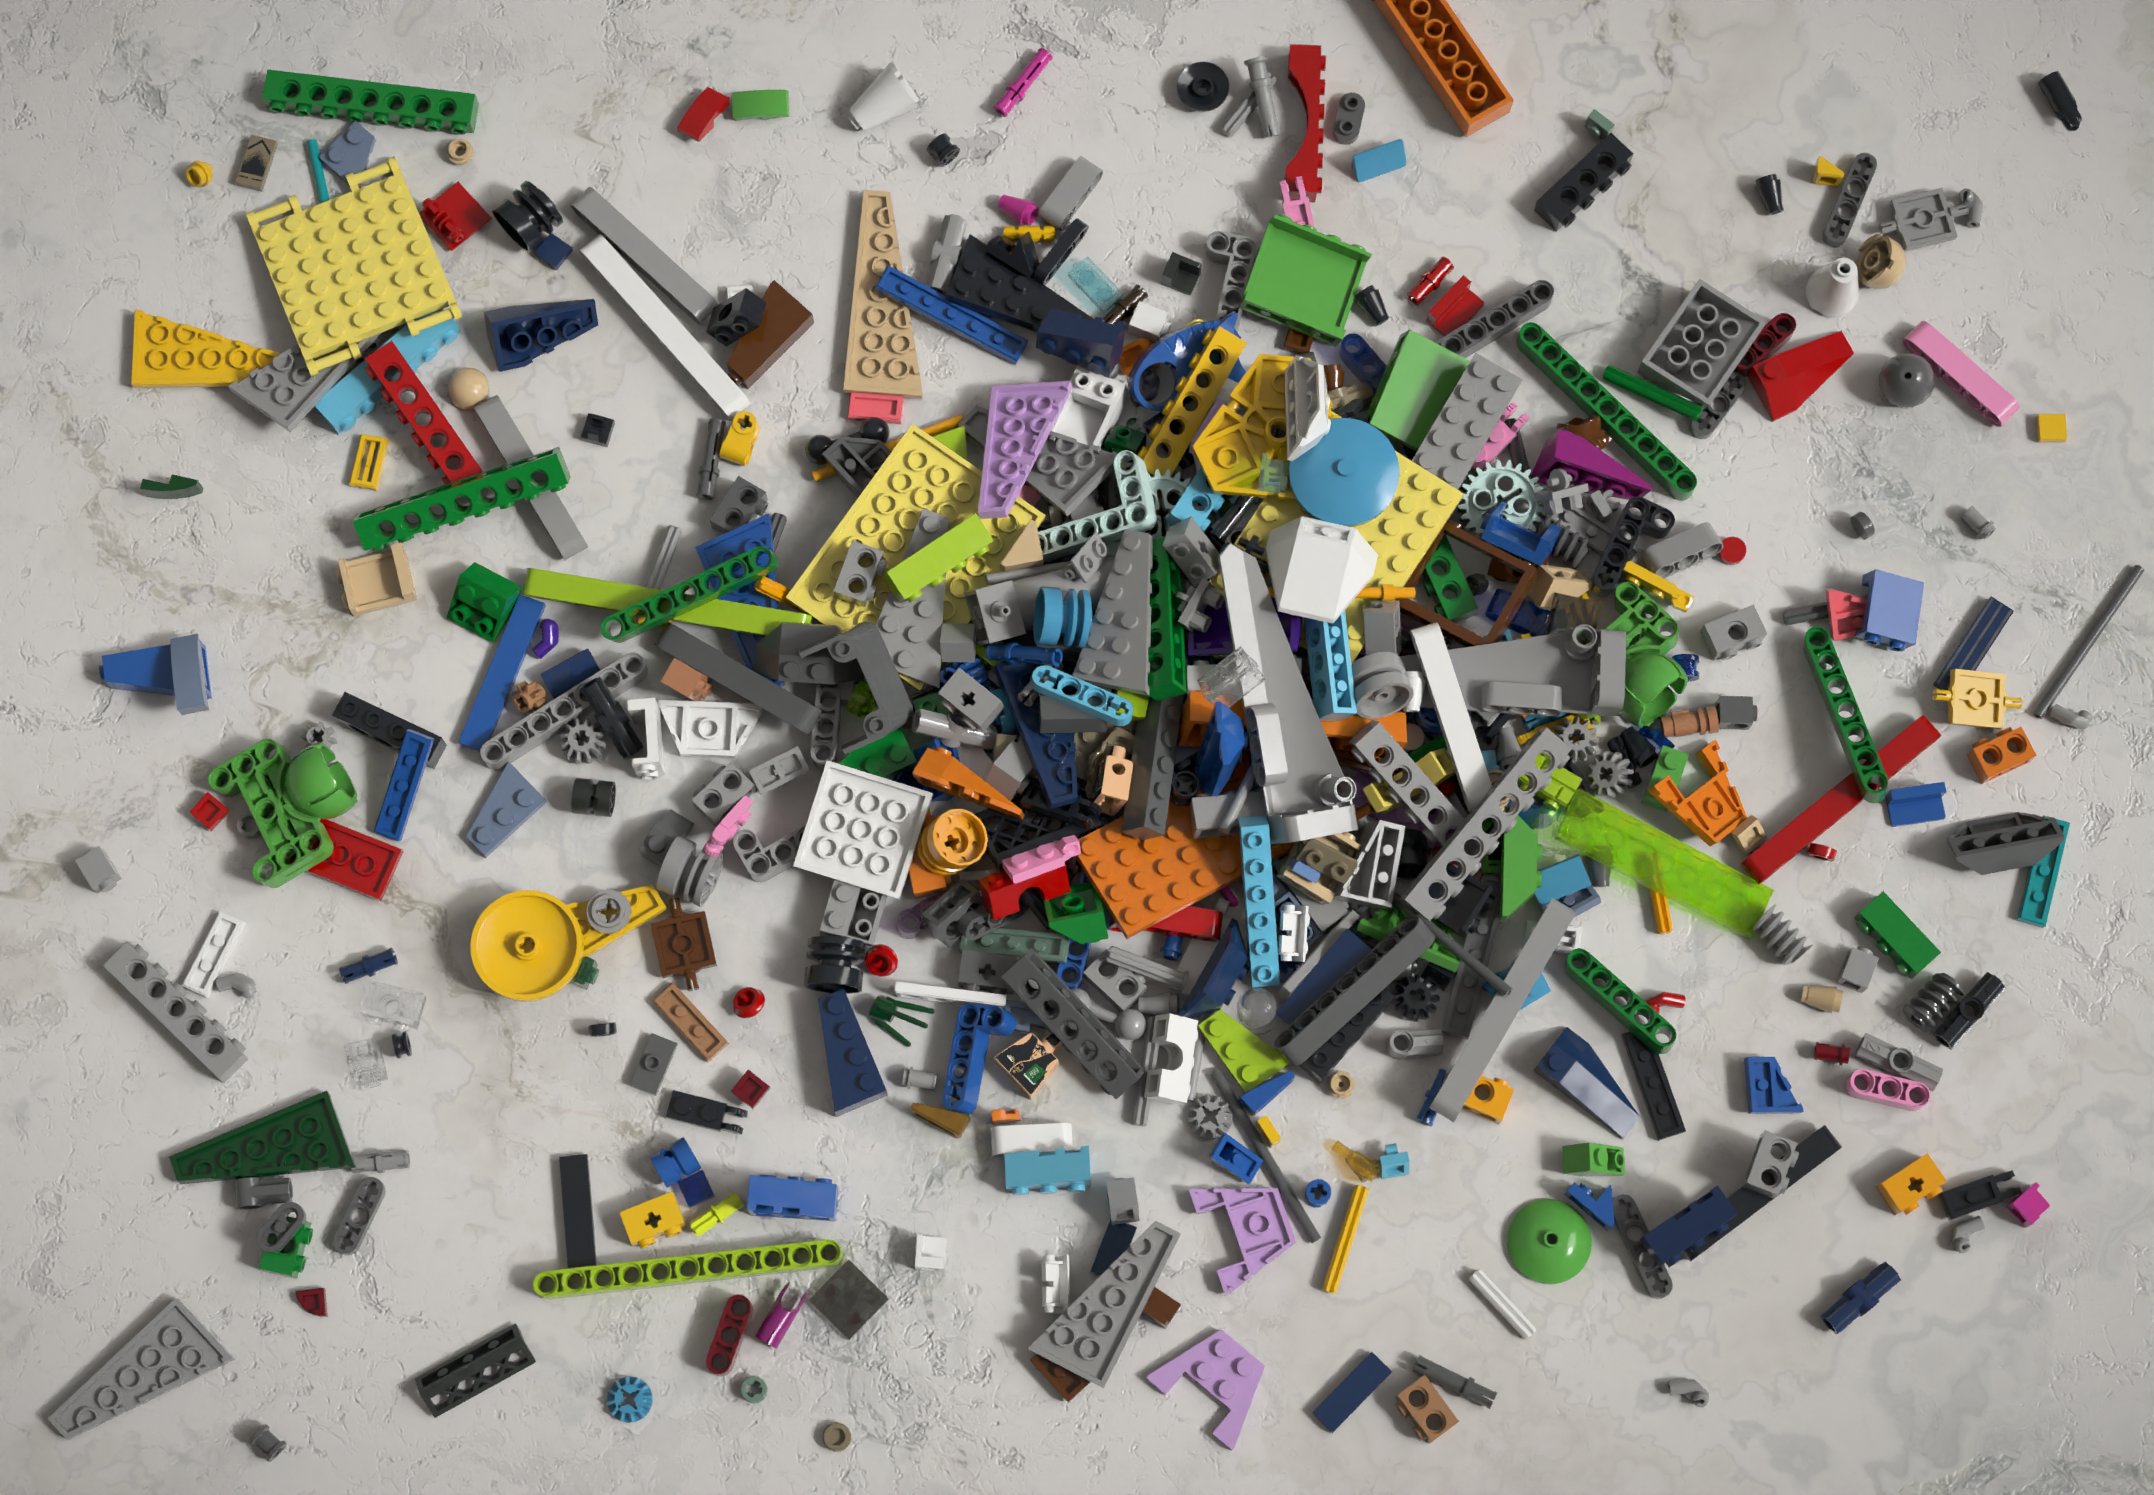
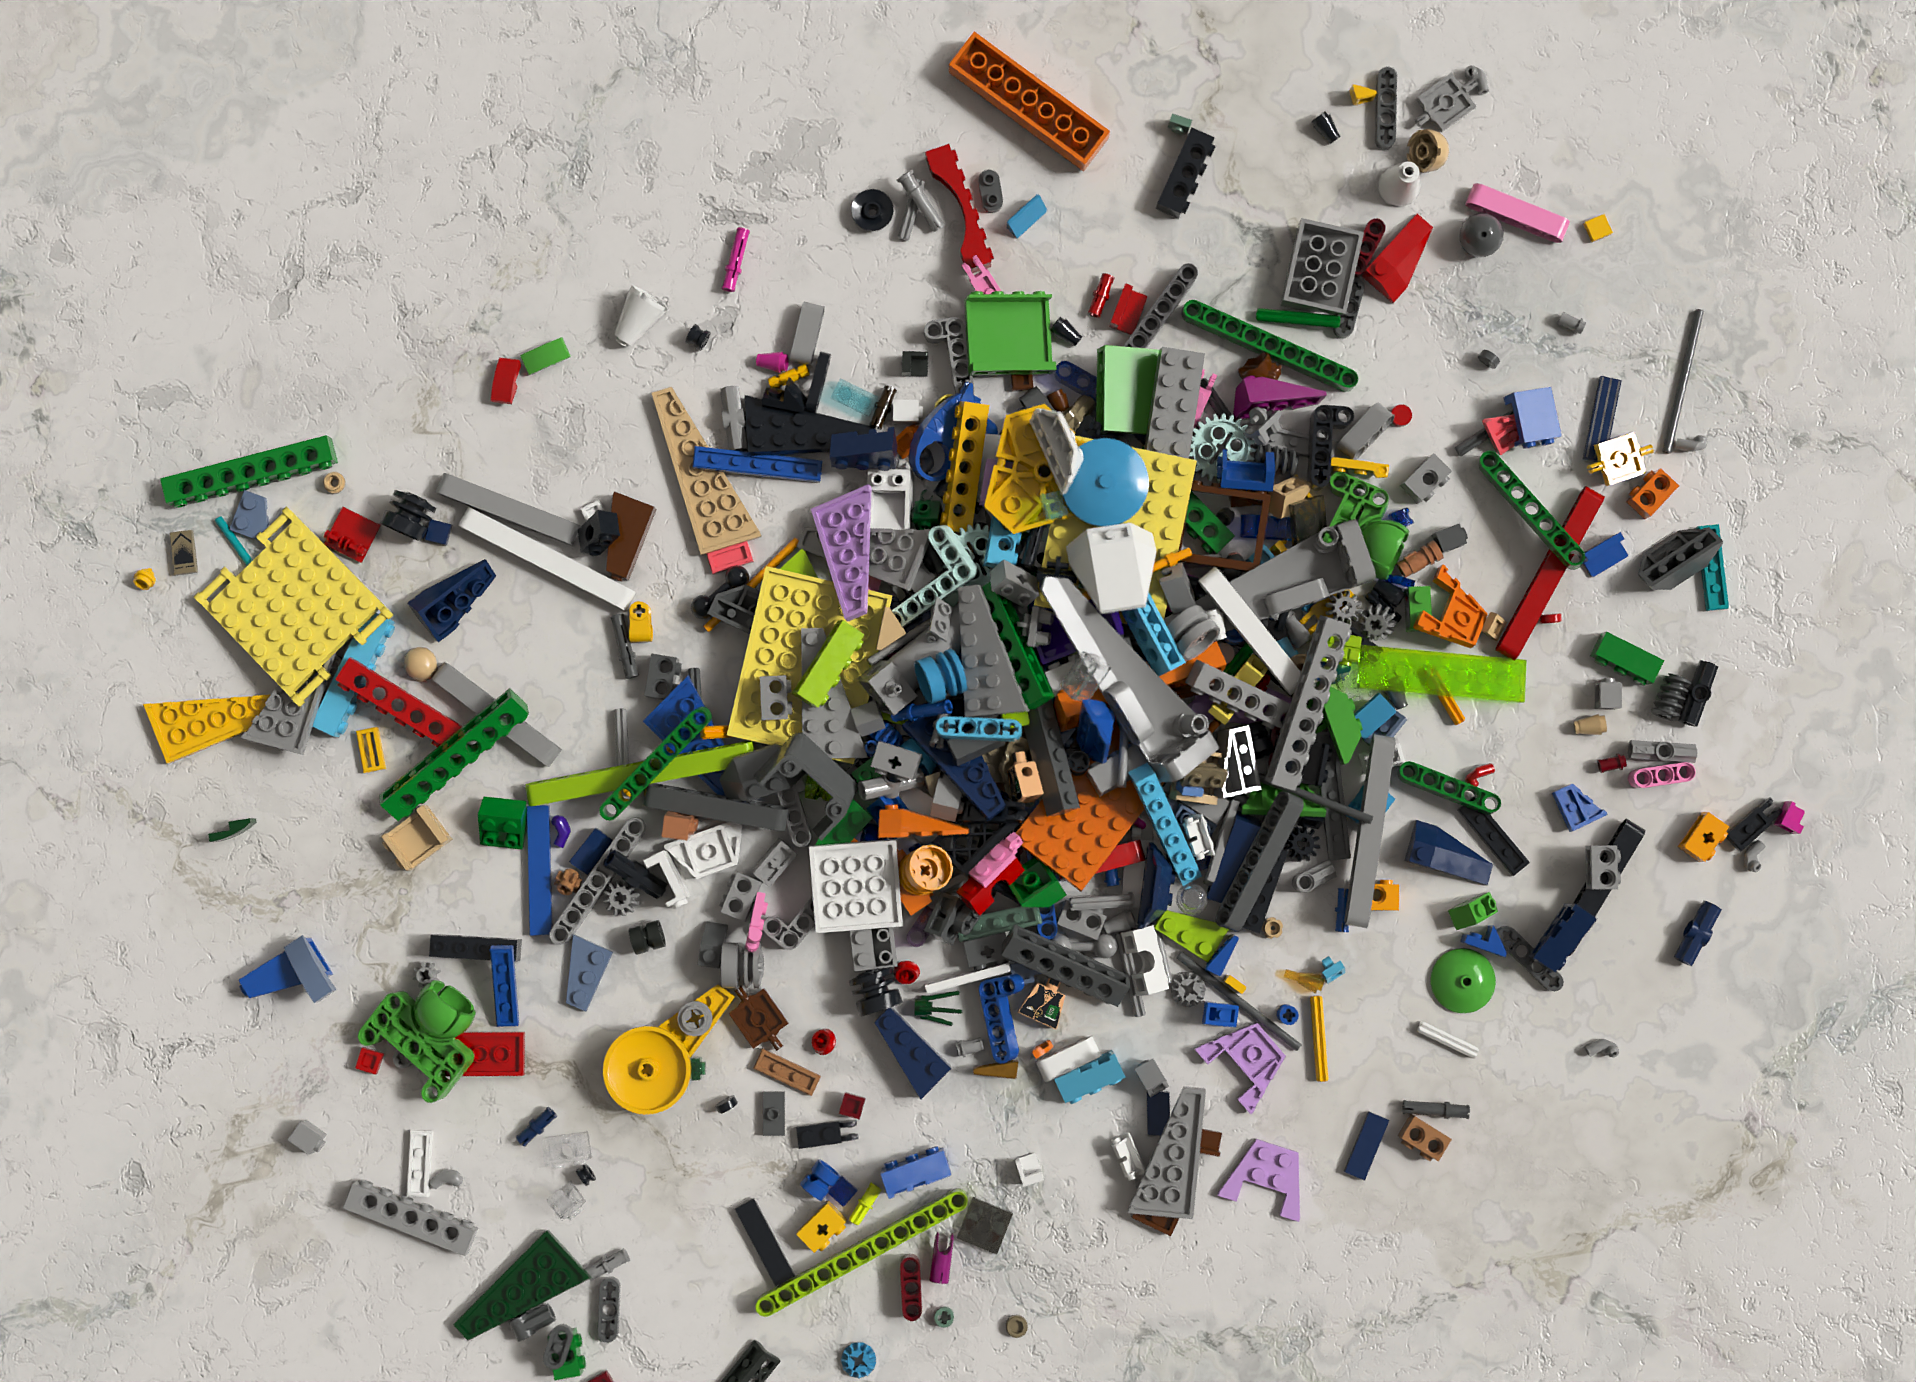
camera: 25 degrees left, 10 degrees up
(597, 430) = (530, 657): black tile -> none
(1600, 507) = (1293, 421): light grey tile -> none
(1781, 936) = (1545, 692): light grey piece -> none

